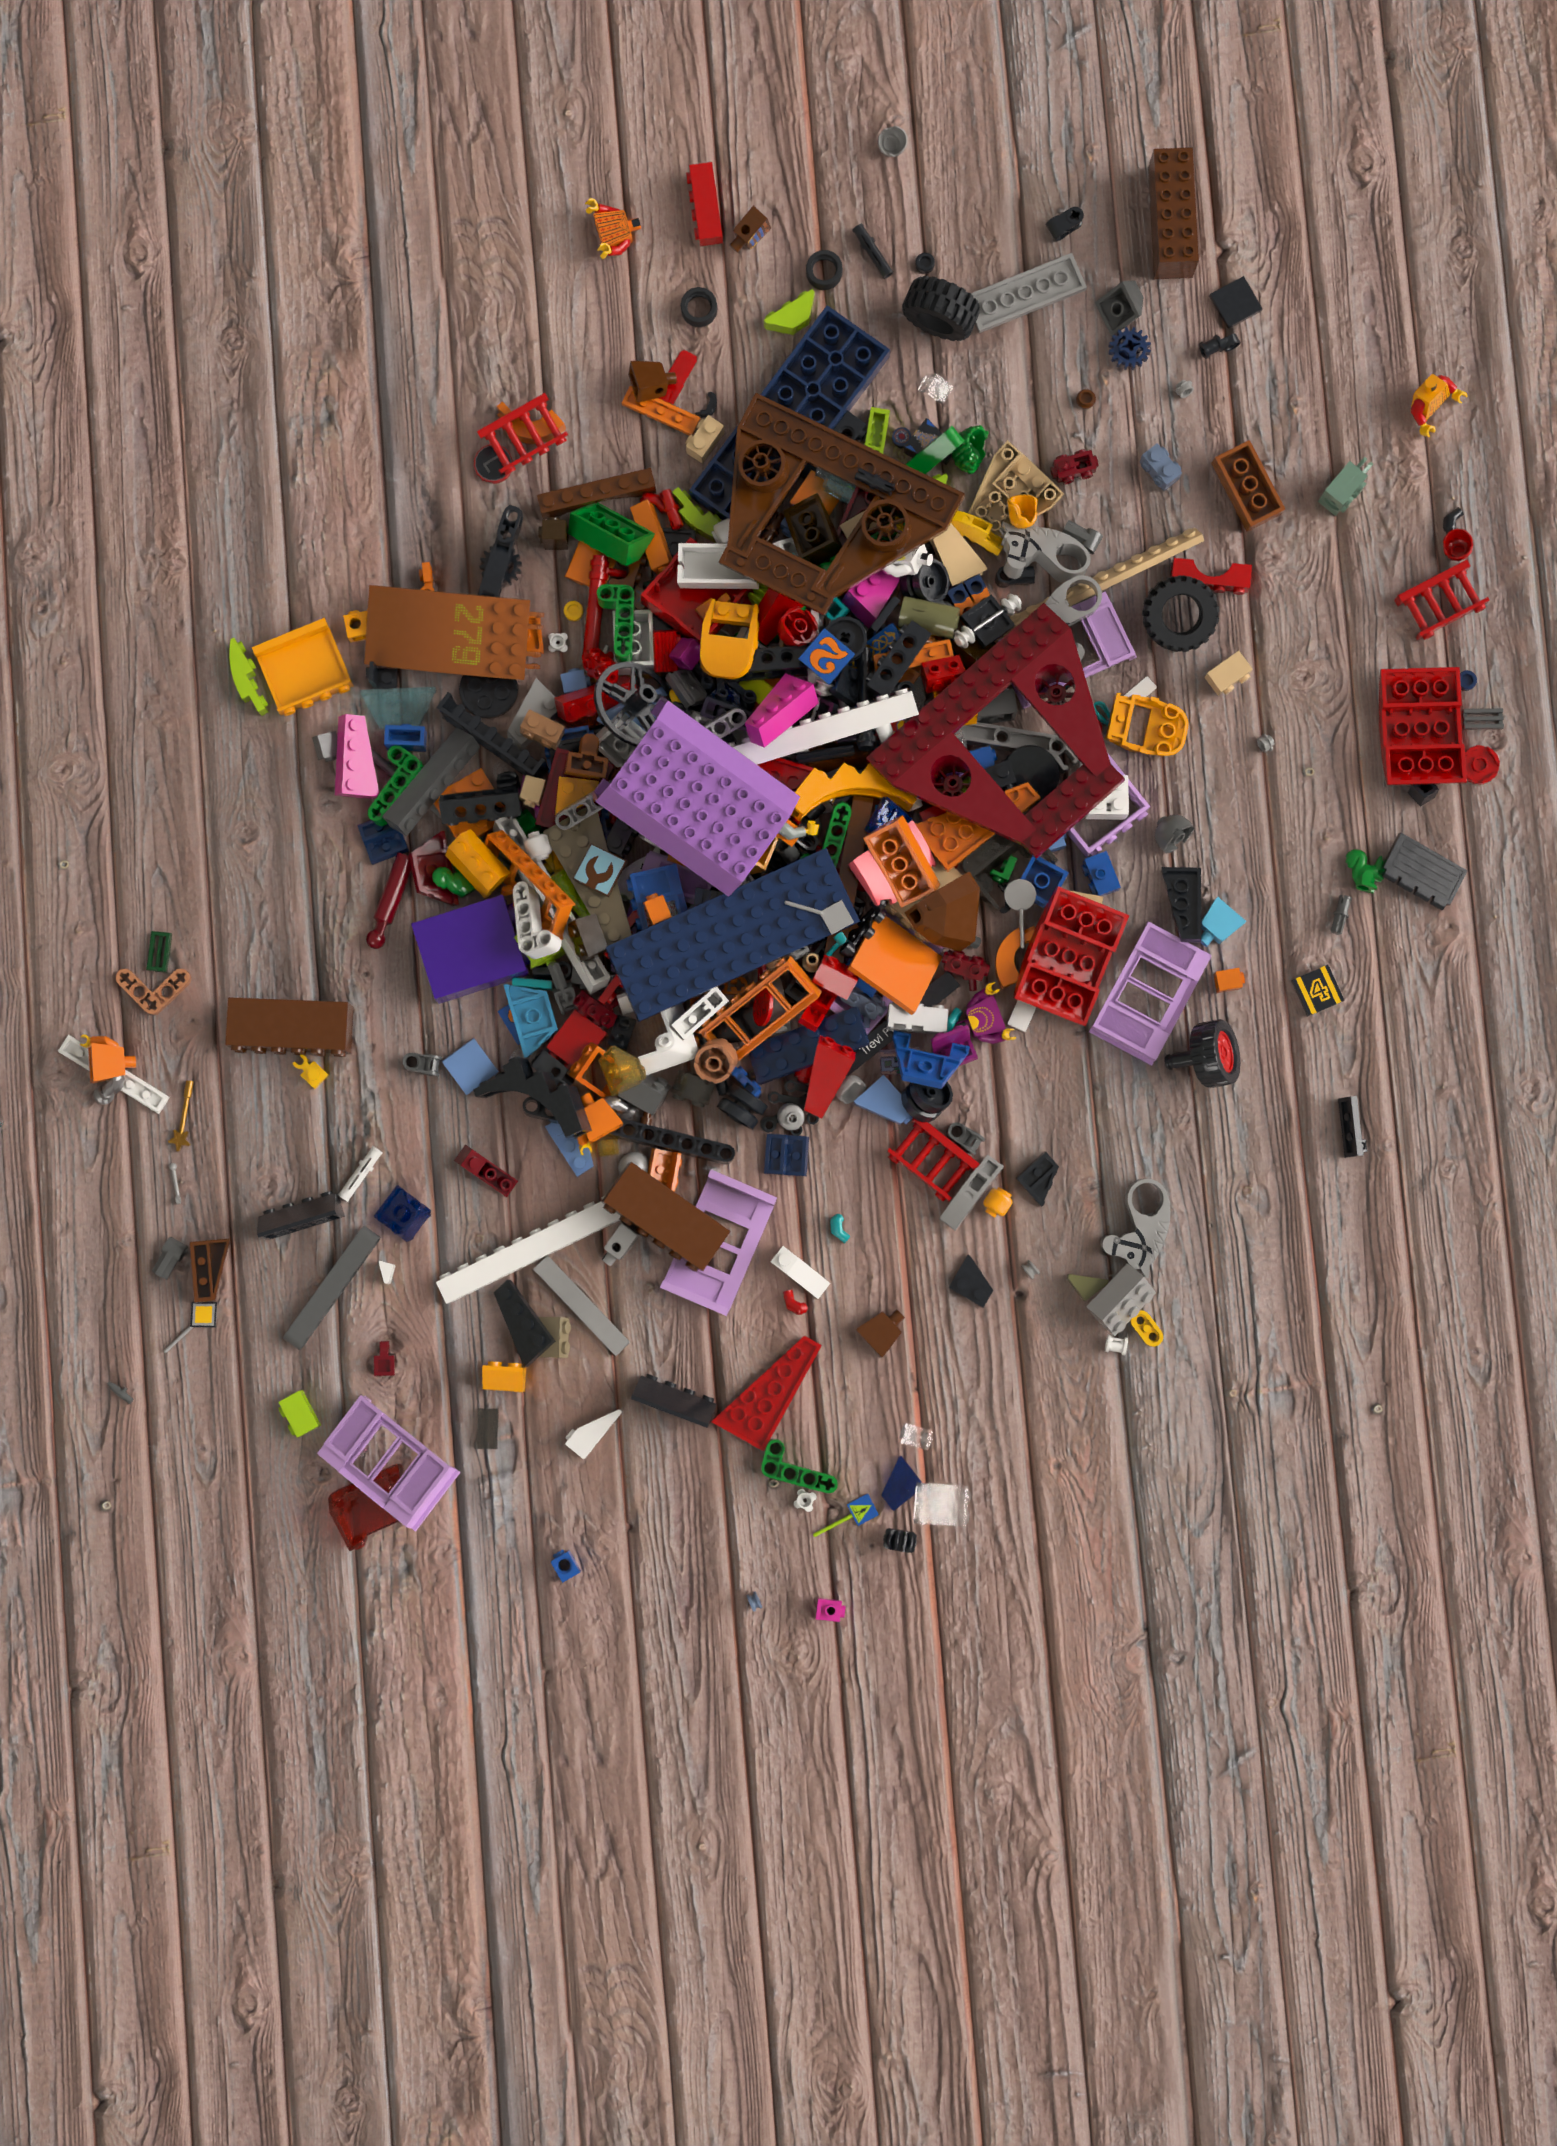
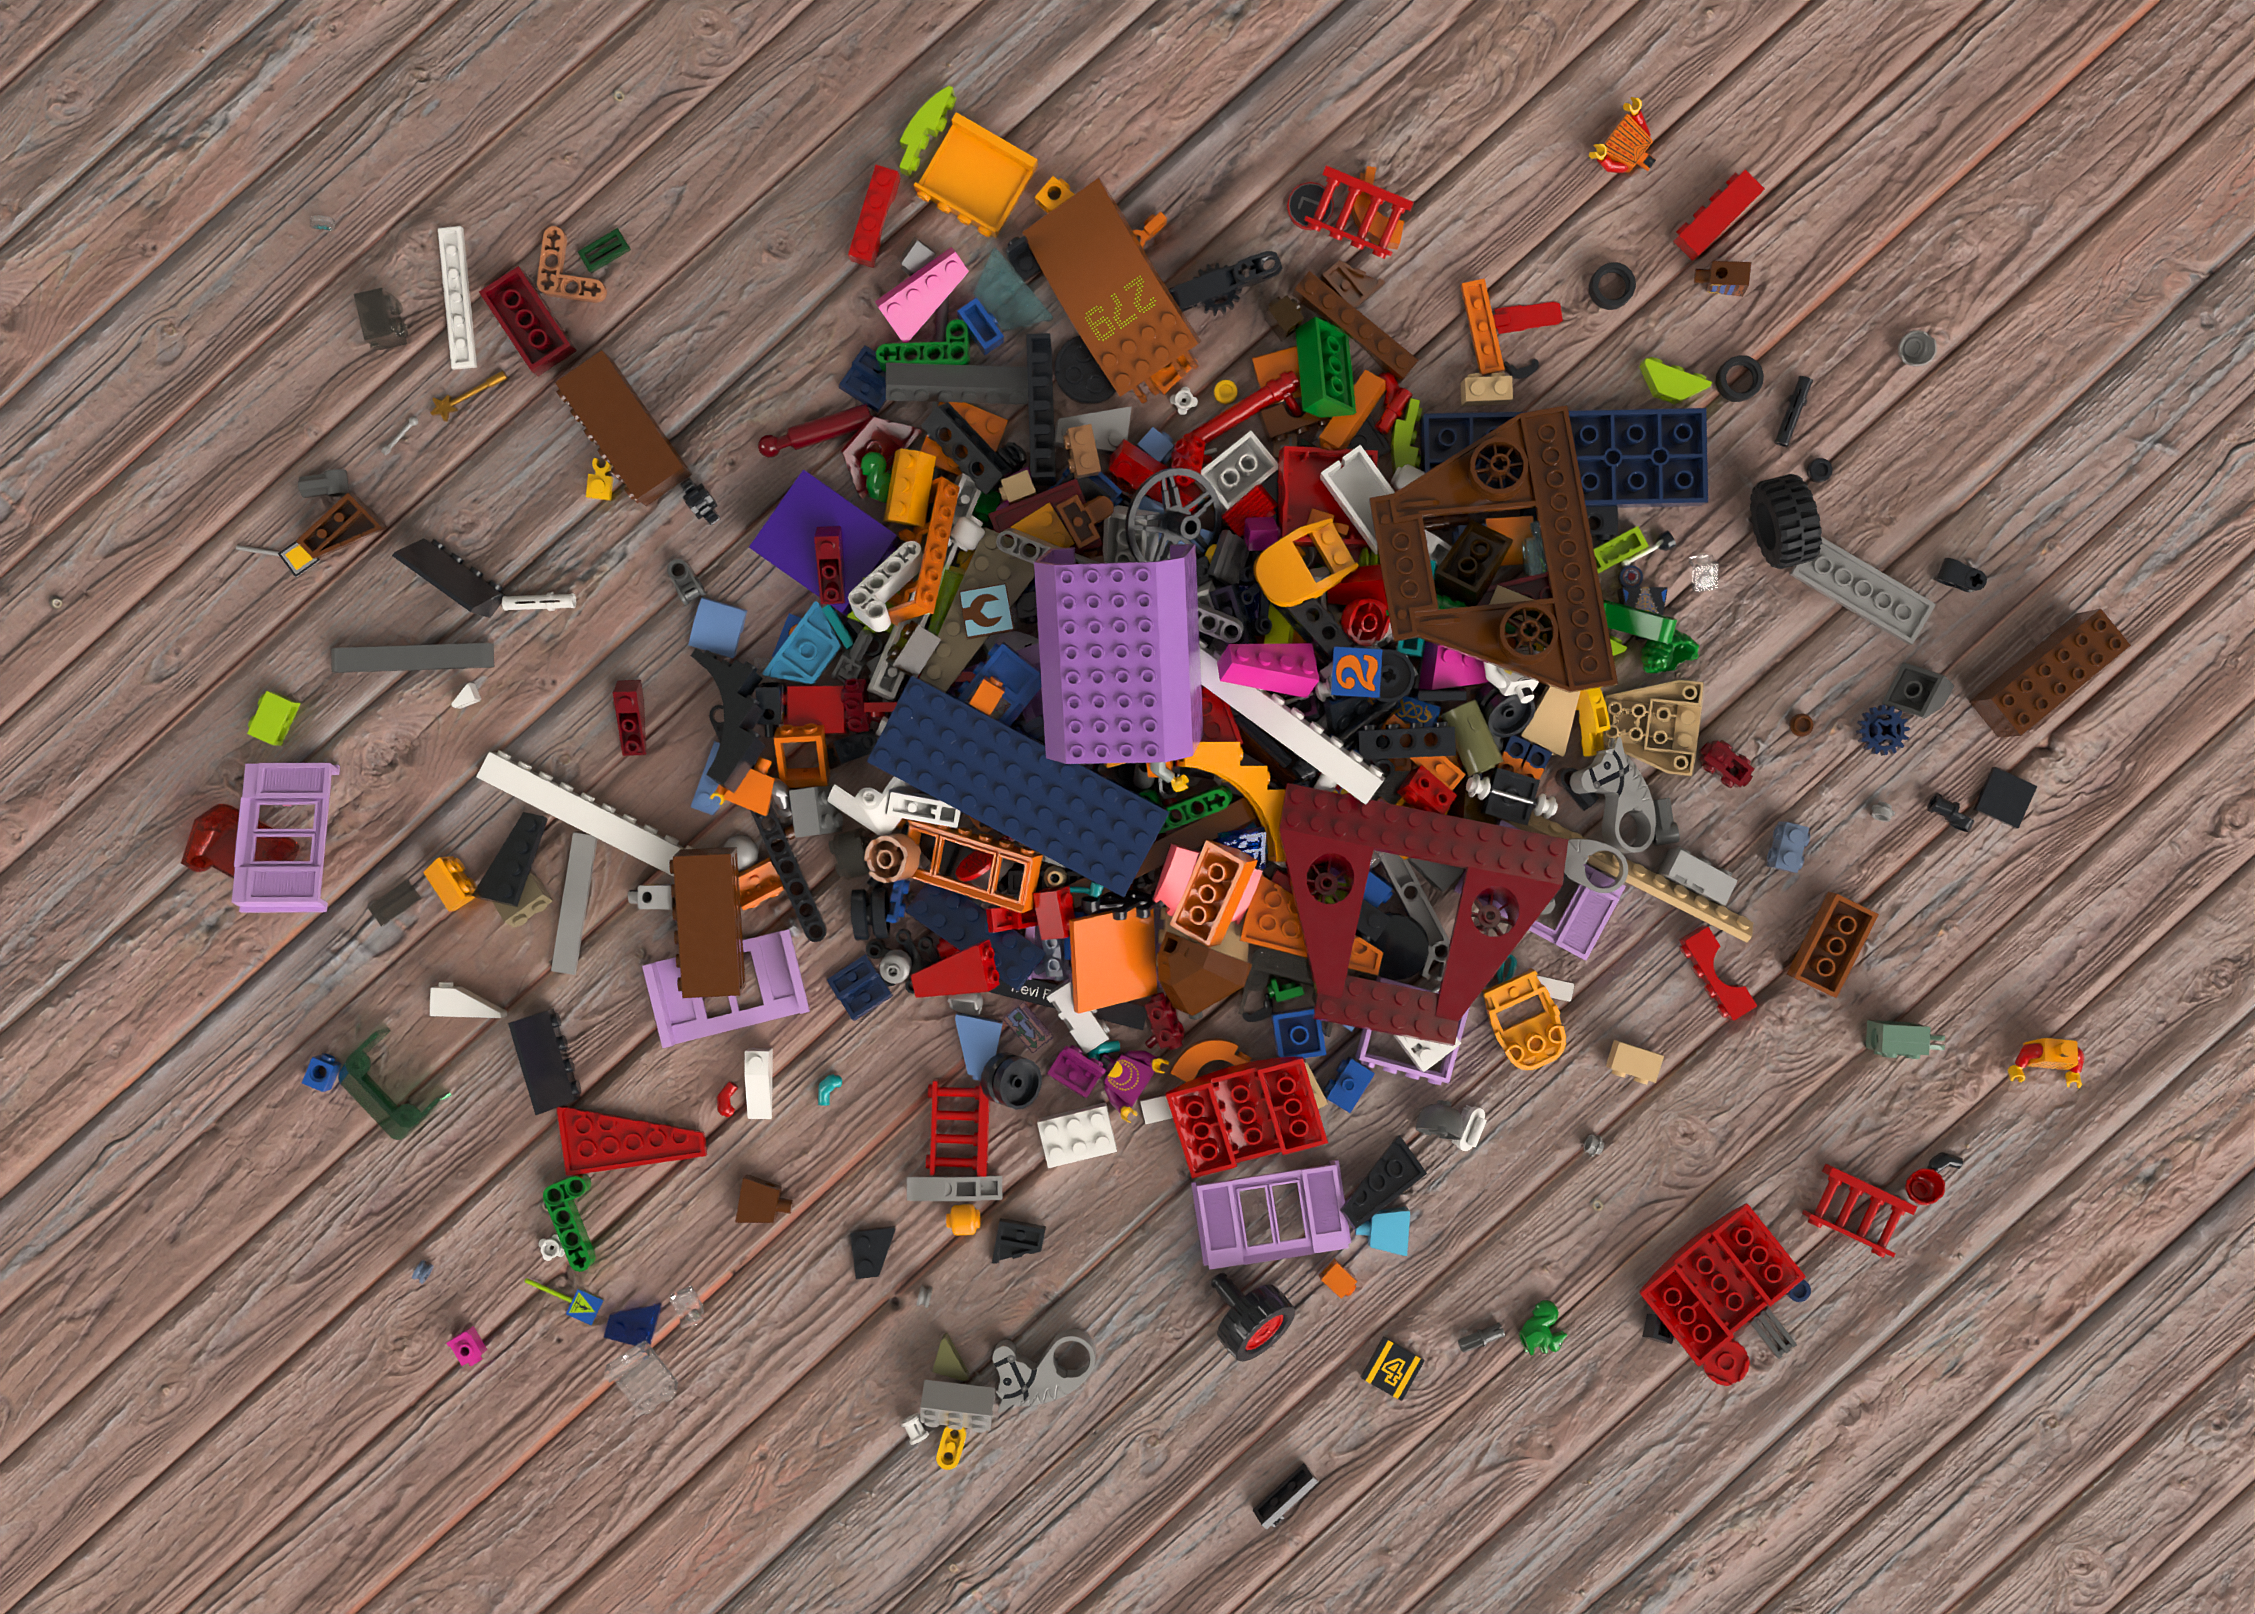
camera: 50 degrees right, 5 degrees up
(92, 1134) = (381, 319): none -> clear smoke brick
(105, 1064) = (457, 285): orange torso -> none
(120, 1392) = (168, 535): dark grey helmet -> none
(168, 1036) = (528, 321): none -> dark red brick
(277, 753) = (869, 228): none -> red arch
(377, 1011) = (700, 501): none -> black gear
(384, 1363) = (381, 760): dark red plate -> none
(403, 1214) = (532, 671): clear blue slope -> none
(489, 951) = (830, 564): none -> dark red slope
(565, 474) = (1351, 283): none -> reddish brown wing
(608, 1147) = (739, 816): clear yellow brick -> none
(621, 624) = (1242, 448): green beam -> none
(621, 1070) = (811, 778): clear yellow slope -> none
(636, 1541) = (394, 1120): none -> clear green windscreen
(649, 379) = (1504, 293): reddish brown torso -> none
(835, 917) = (1108, 871): light grey piece -> none
(874, 481) = (1564, 588): black pin -> none
(895, 398) = (1663, 542): none -> hinge
(900, 1540) = (578, 1365): black gear -> none
(926, 1067) = (1035, 1060): blue wing -> none
(966, 1138) = (1002, 1147): dark grey piece -> none
(998, 1082) = (1077, 1135): none -> white brick
(1017, 505) = (1651, 741): light orange hair -> none
(1020, 896) = (1268, 1026): light grey piece -> none
(1135, 540) = (1697, 875): none -> light grey wedge
(1192, 812) = (1473, 1126): none -> white piece
(1199, 632) = (1654, 1004): black tyre -> none
(1424, 870) = (1580, 1385): black hinge -> none

